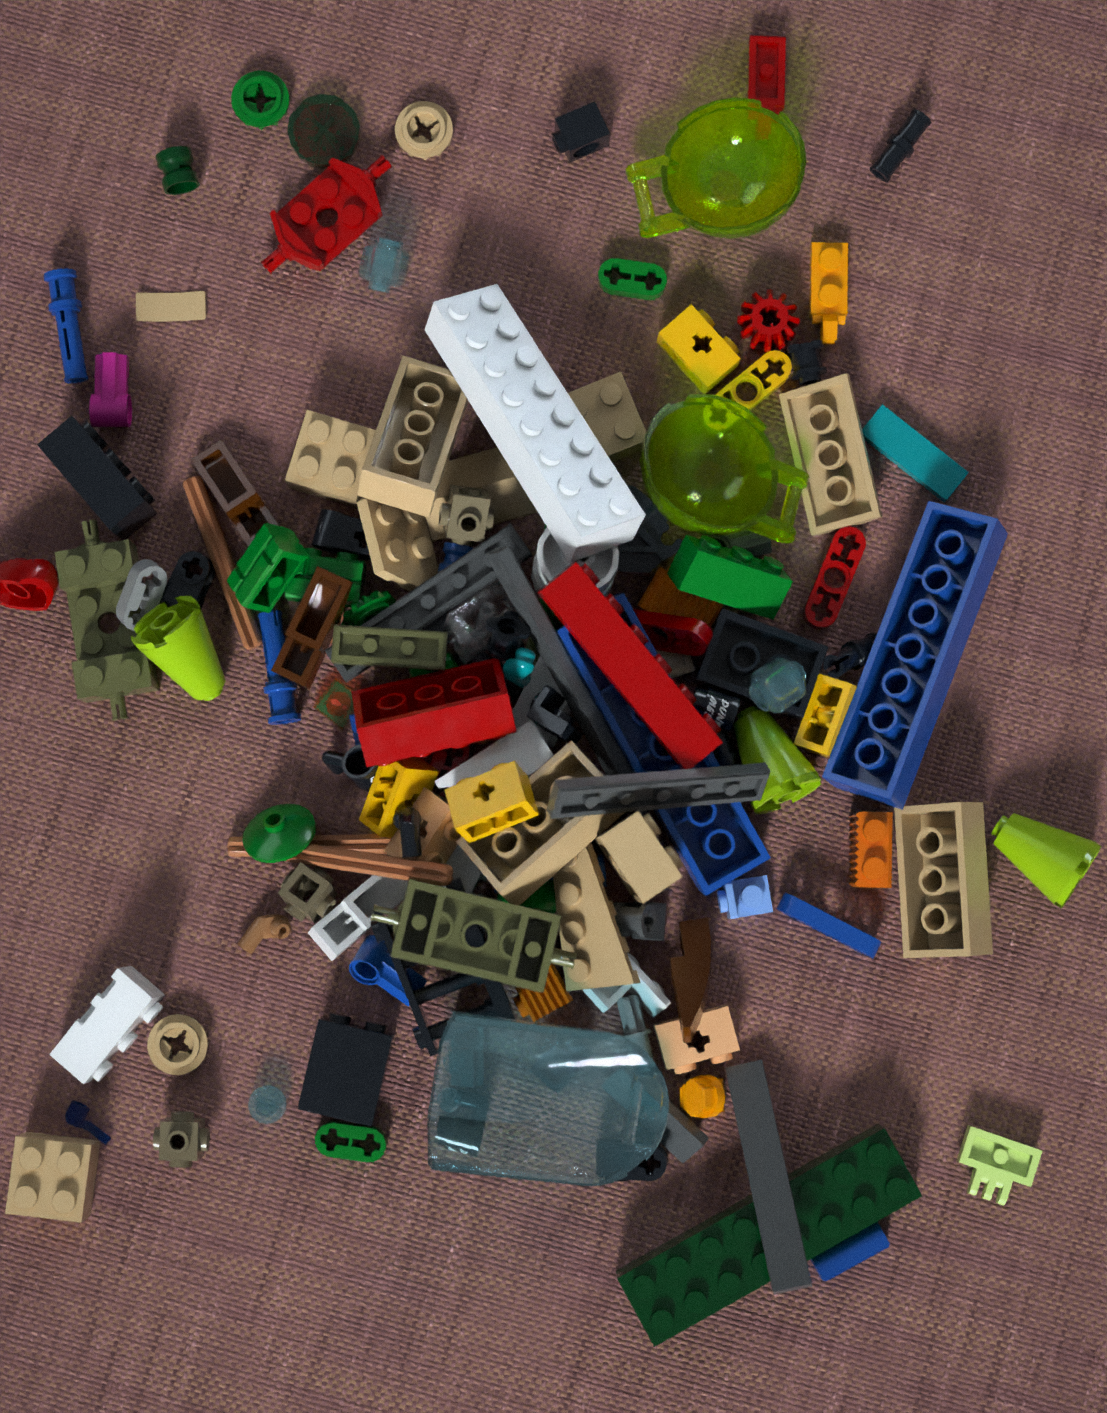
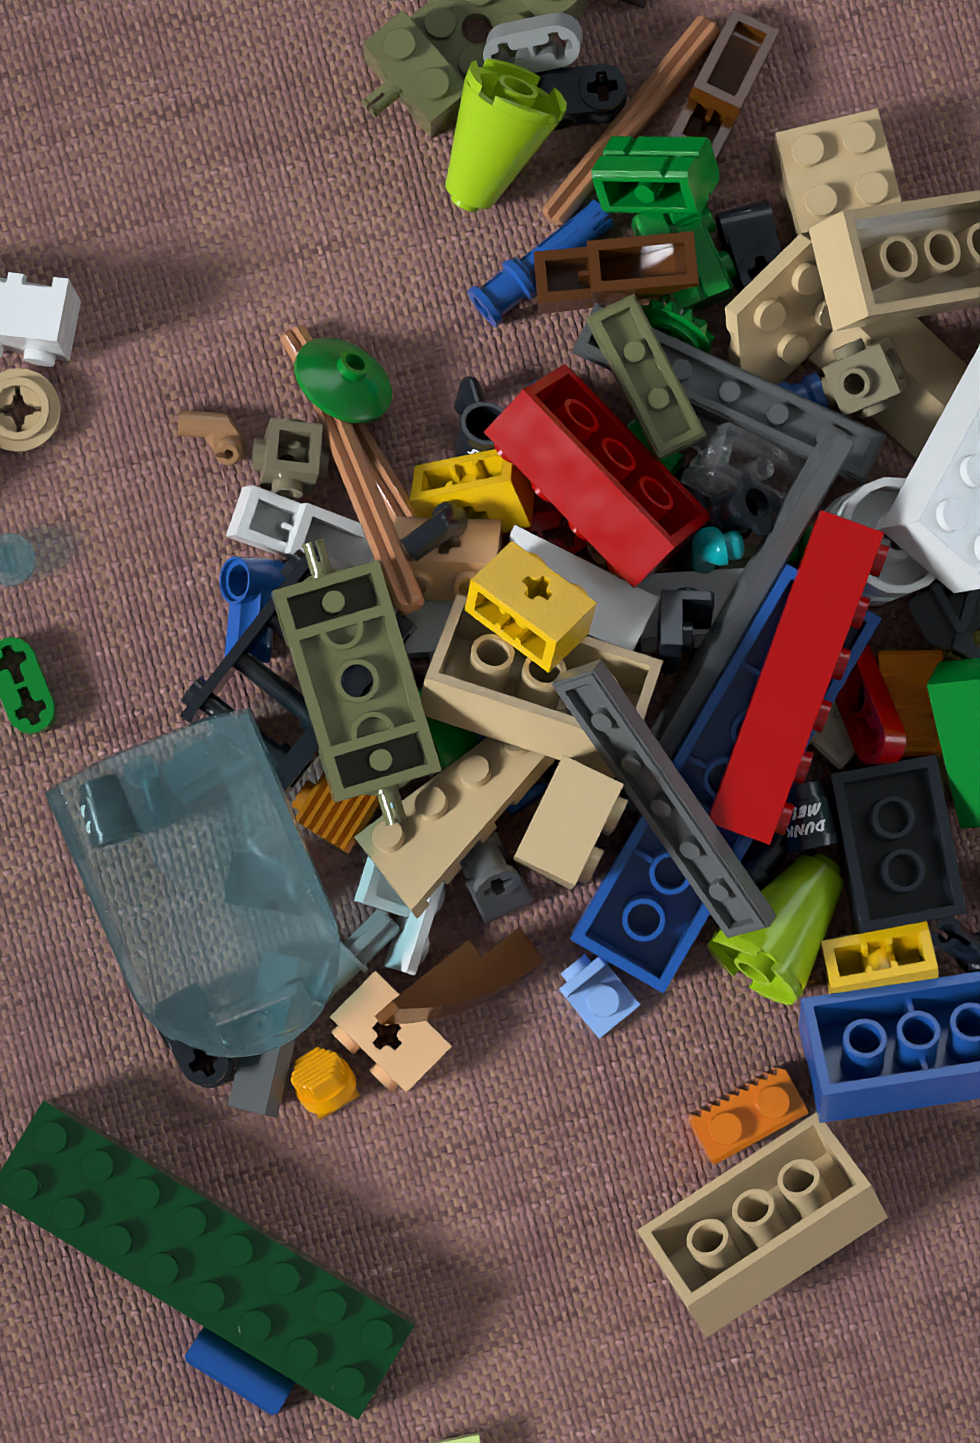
camera: 60 degrees right, 0 degrees up
(336, 704) = (539, 356): clear orange tile -> none
(346, 1069) = (105, 629): black brick -> none
(768, 1177) = (271, 1215): dark grey tile -> none
(778, 685) = (881, 876): clear light blue head -> none
(829, 925) = (623, 1117): blue beam -> none
(1045, 854) = (869, 1337): lime cone -> none

